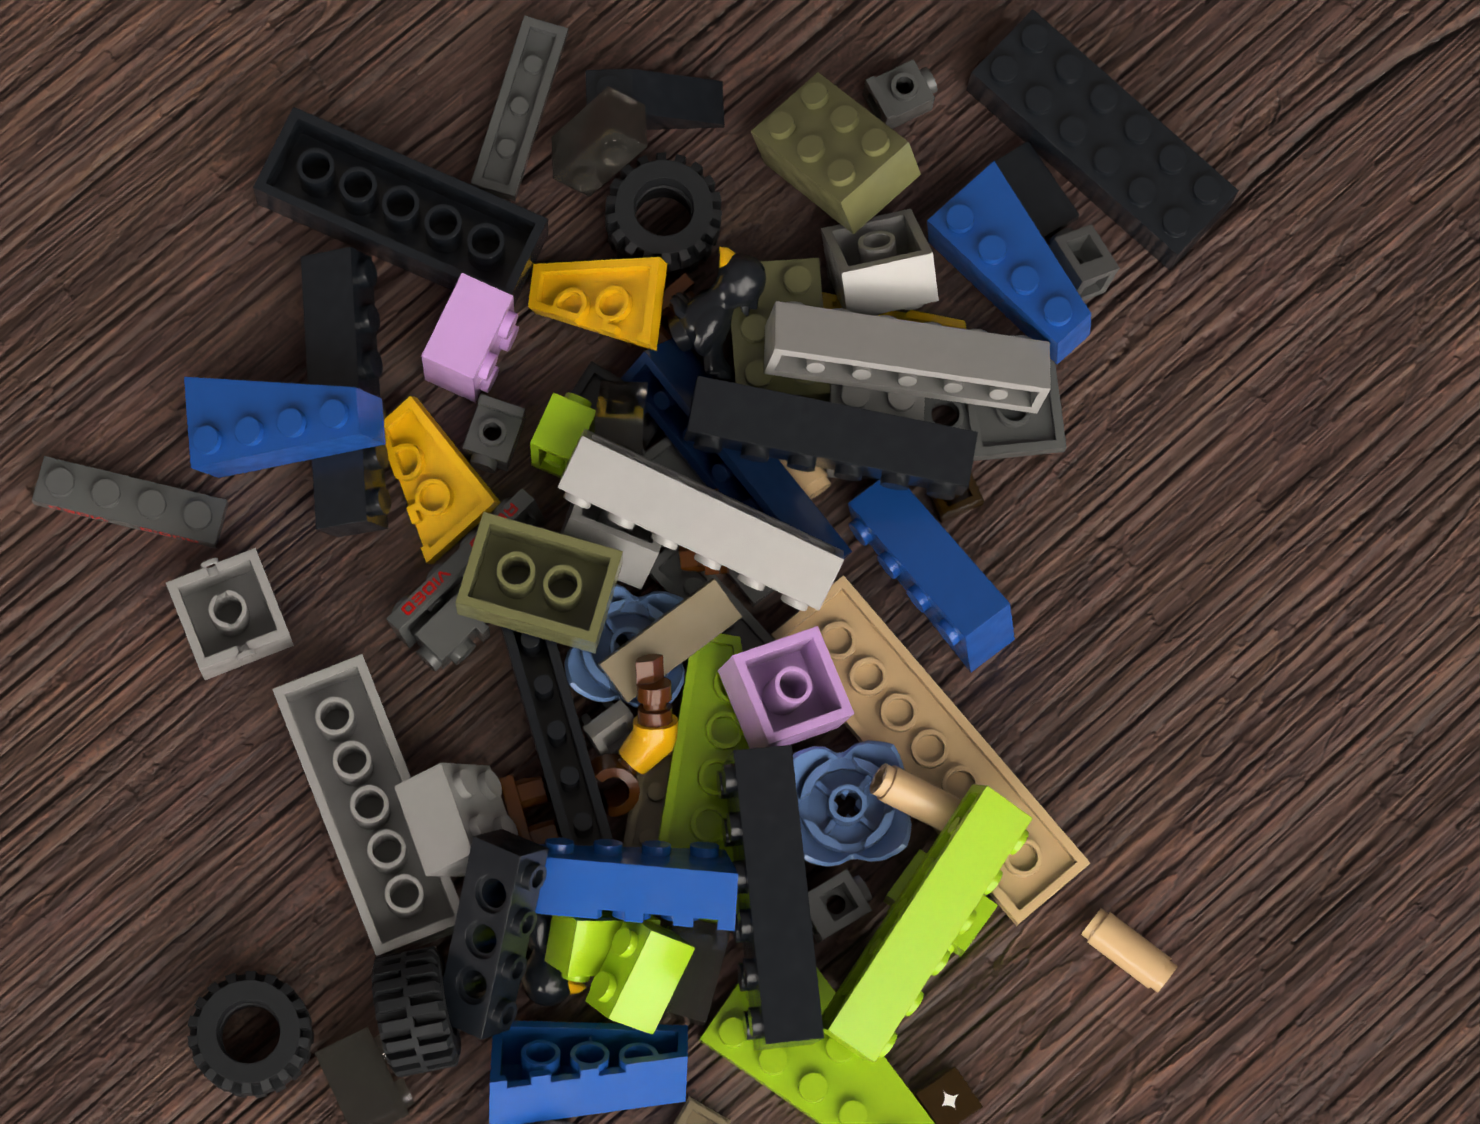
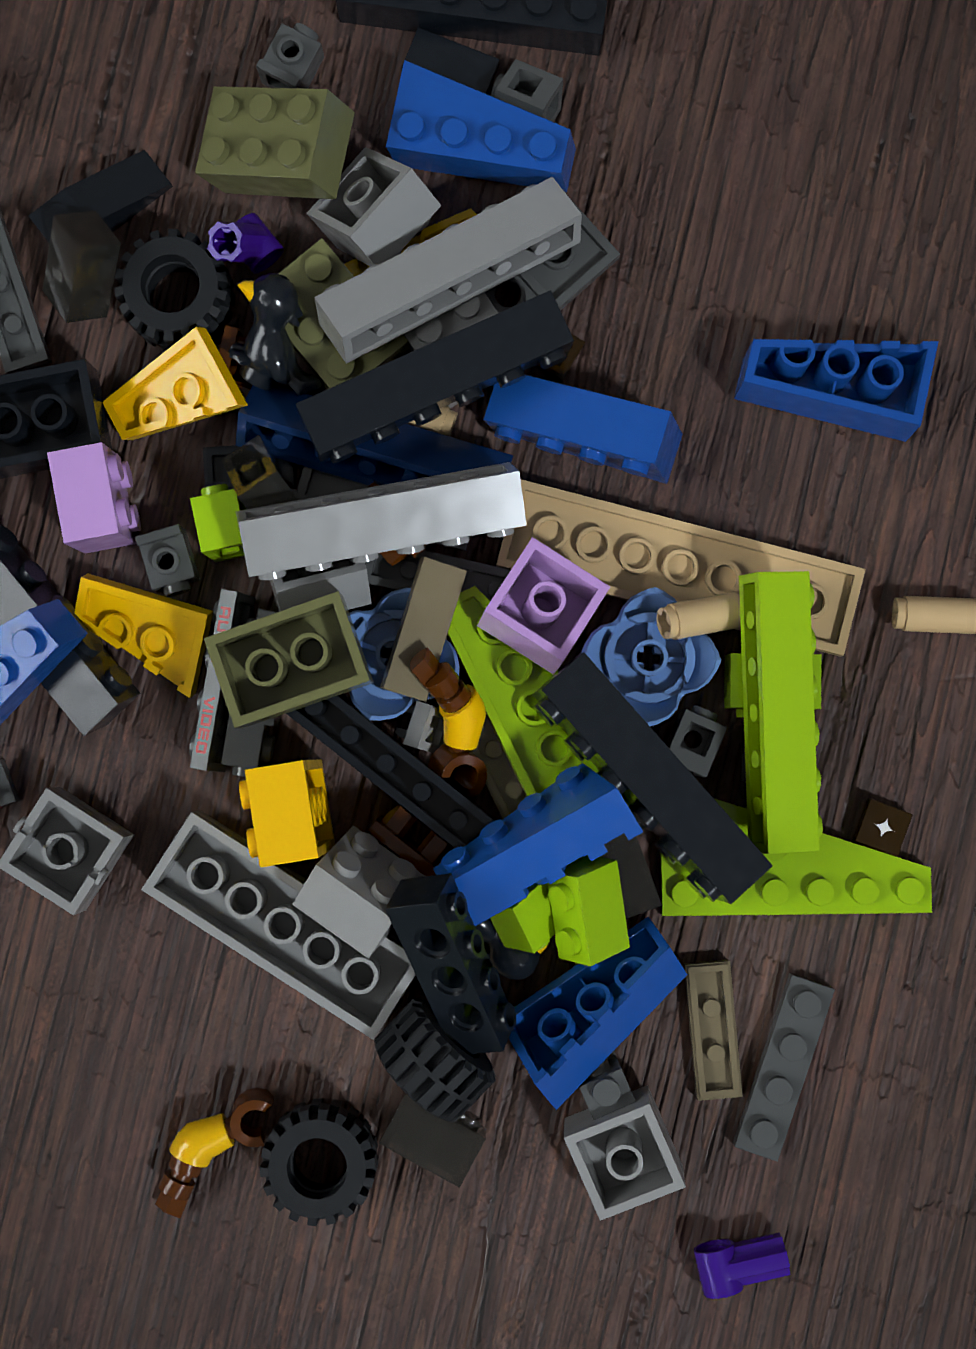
camera: 25 degrees left, 10 degrees up
(154, 948) = (202, 1141): none -> piece
(449, 705) = (287, 812): none -> yellow brick
(752, 216) = (245, 242): none -> dark purple piece
(1179, 686) = (841, 382): none -> blue wedge

